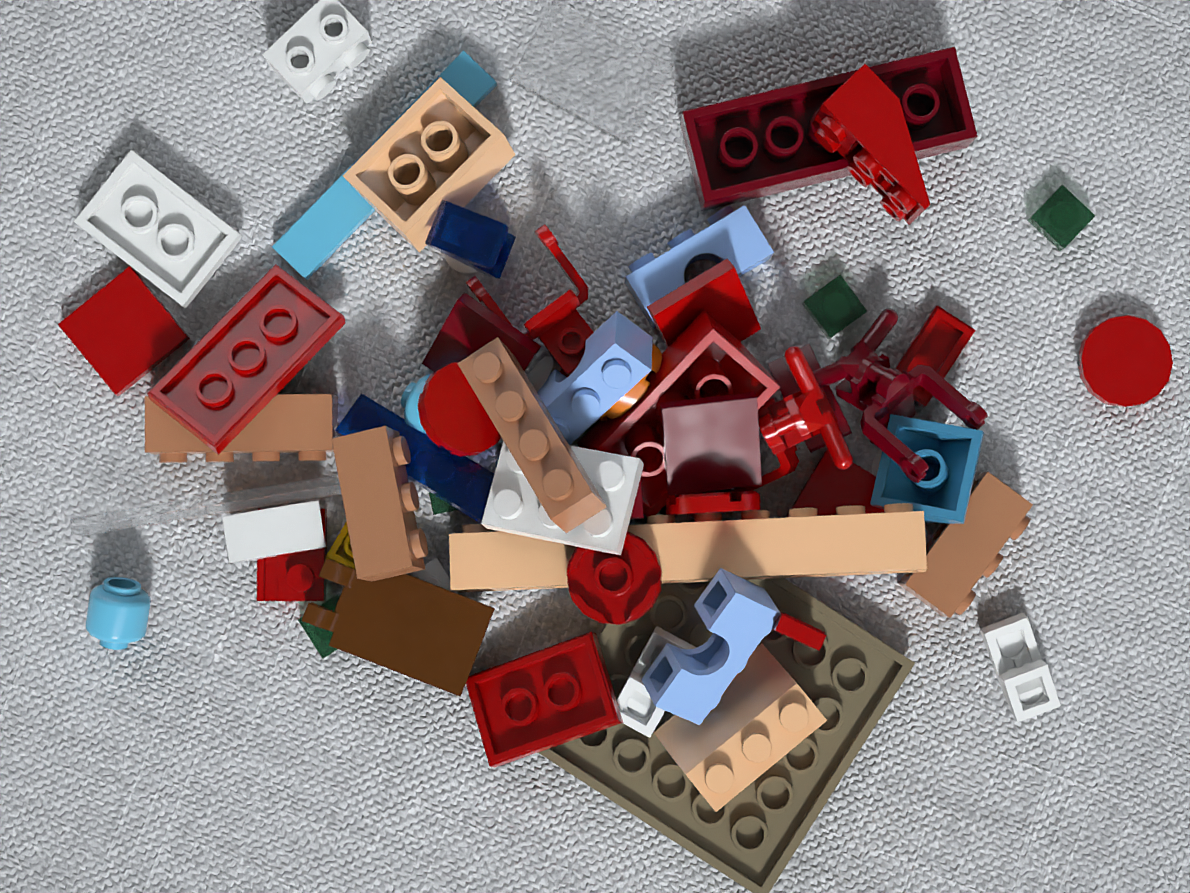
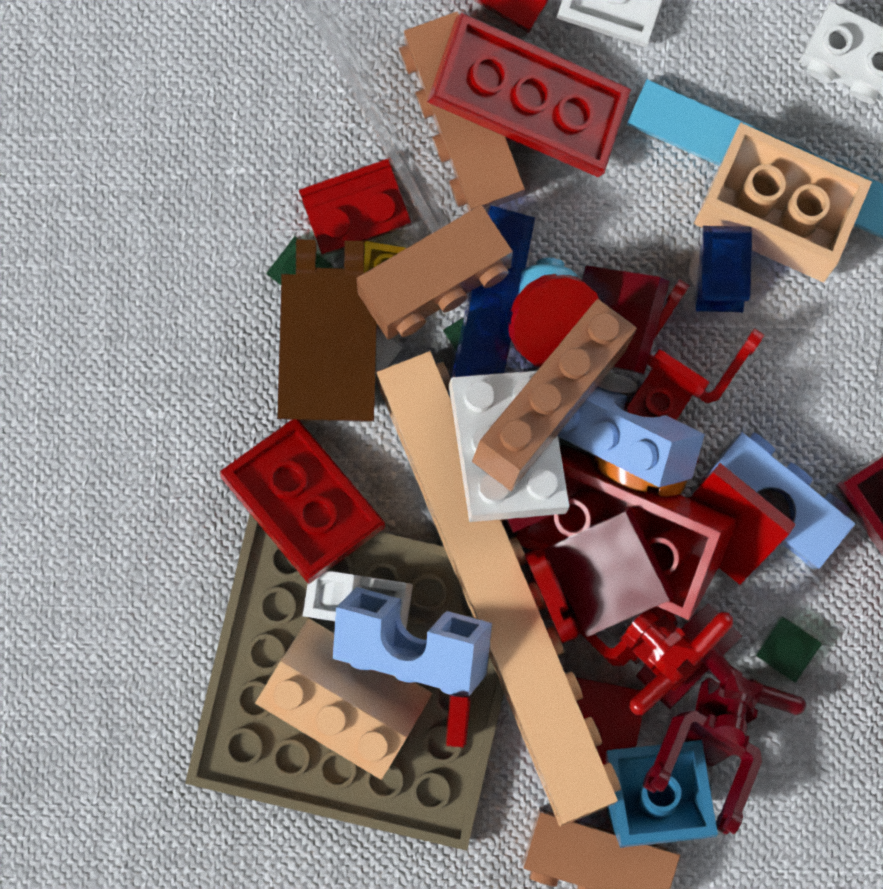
camera: 75 degrees right, 0 degrees up
(118, 612) = (240, 61): medium azure head -> none
(273, 531) = (371, 181): white slope -> none
(615, 586) = (437, 527): red tile -> none
(937, 346) = (784, 763): red tile -> none

